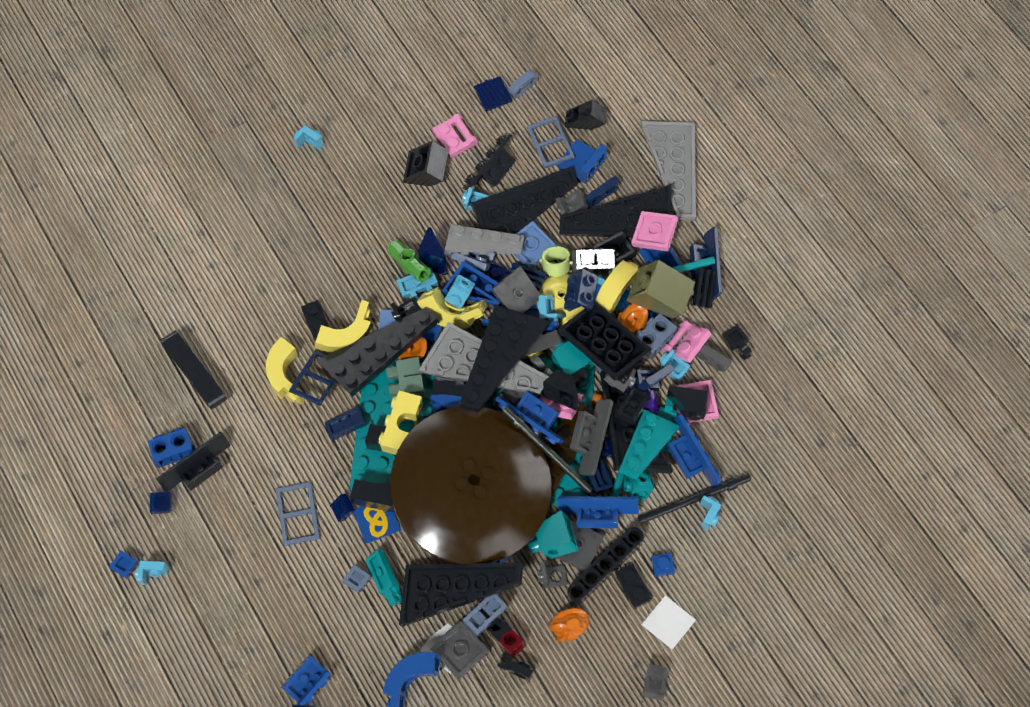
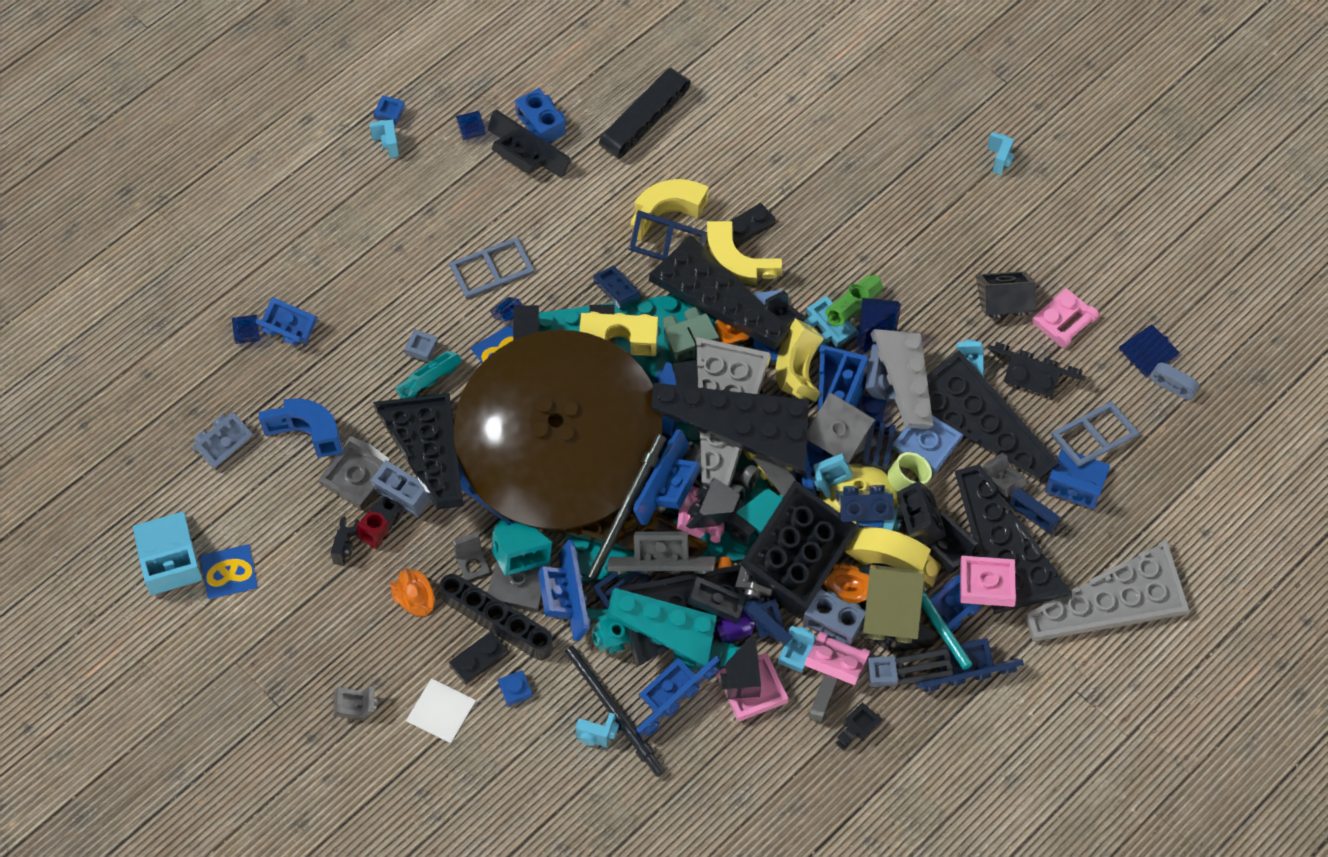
camera: 75 degrees right, 5 degrees down
(459, 291) = (823, 361): medium azure bracket -> none
(586, 116) = (1149, 468): black slope -> none
(700, 316) = (882, 671): none -> sand blue plate

